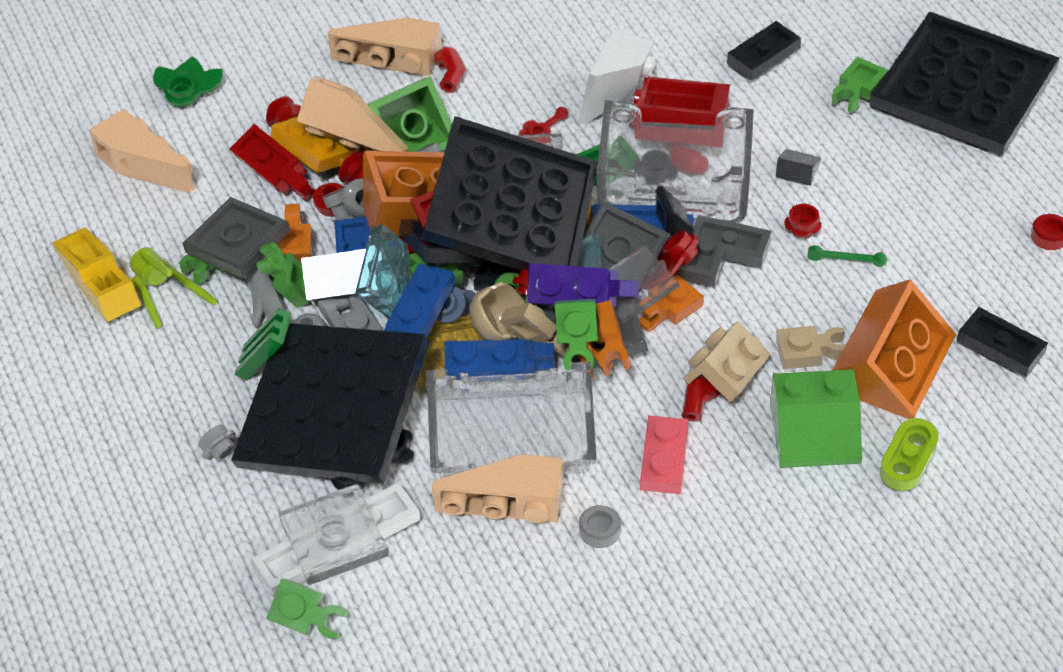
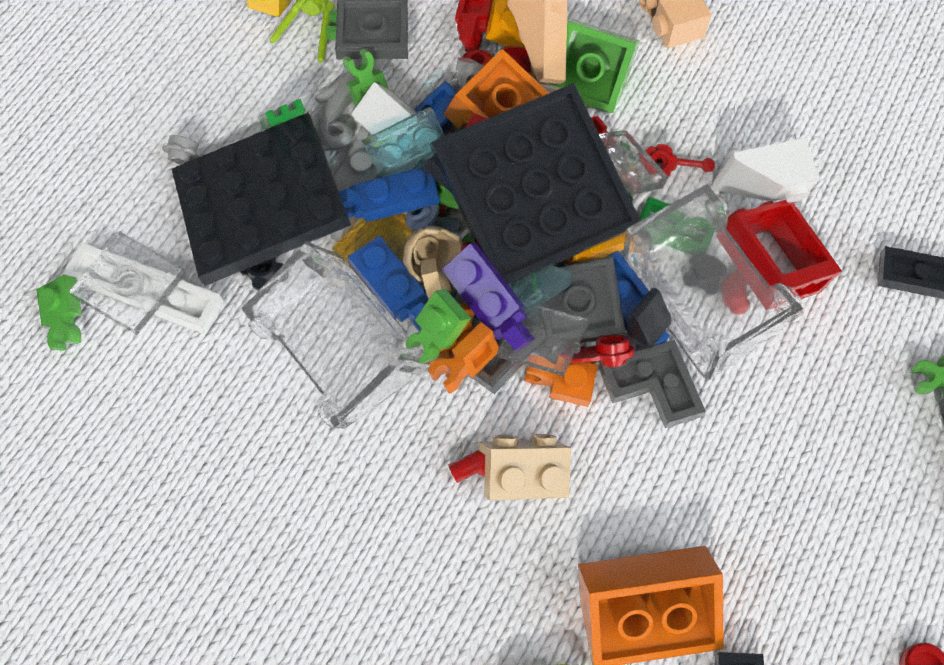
camera: 50 degrees right, 15 degrees up
(299, 239) = (418, 68): orange plate -> none
(454, 68) = (686, 58): red arm -> none
(510, 488) = (275, 382): light nougat slope -> none
(599, 526) = (287, 473): light grey tile -> none
(664, 455) = (397, 477): coral plate -> none
(797, 166) = (809, 386): black slope -> none
(803, 220) = (752, 424): red plate -> none
(805, 348) = (602, 520): tan plate -> none
(816, 253) = (757, 523): green hinge -> none
(816, 418) = (518, 583): bright green slope -> none

